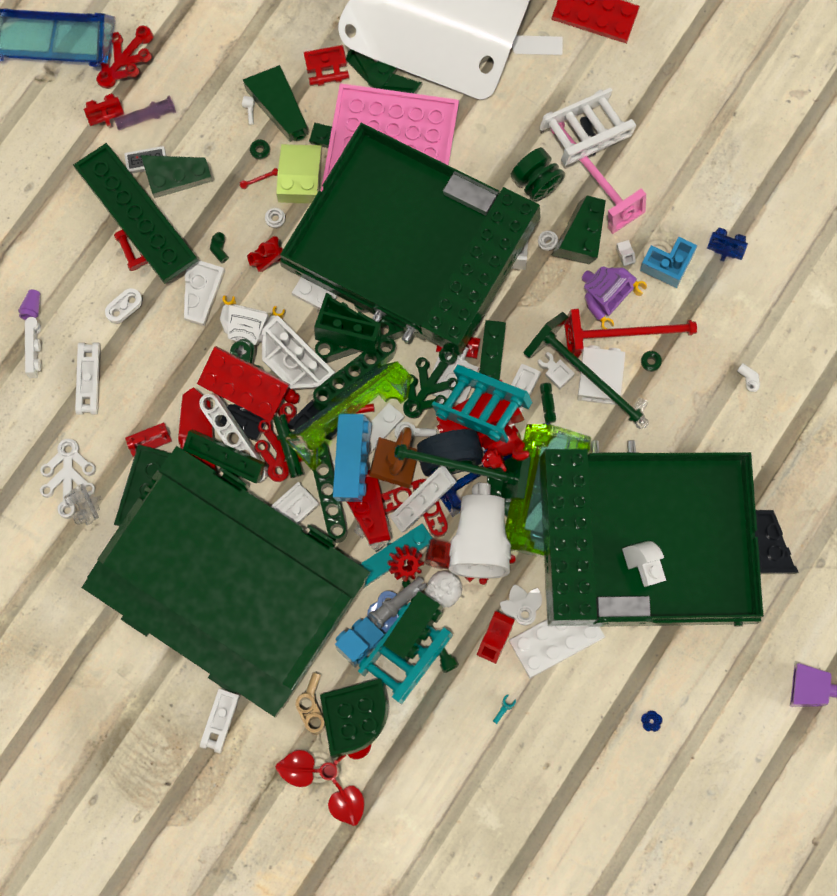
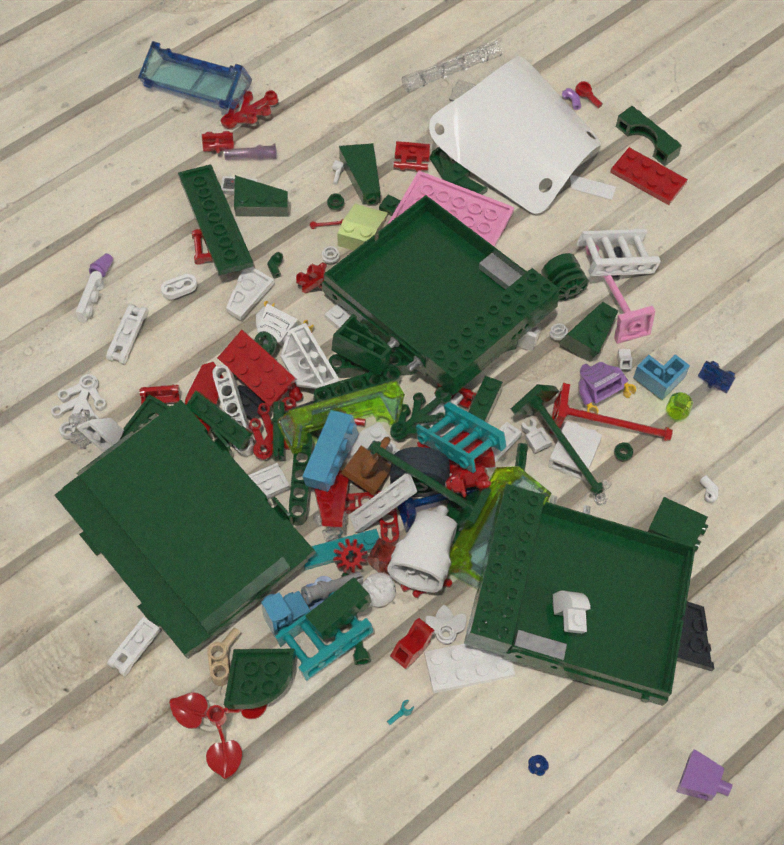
camera: 10 degrees right, 15 degrees down
(106, 504) = (101, 432): none -> white slope
(696, 292) = (679, 406): none -> clear neon green head
(726, 430) = (678, 523): none -> dark green brick

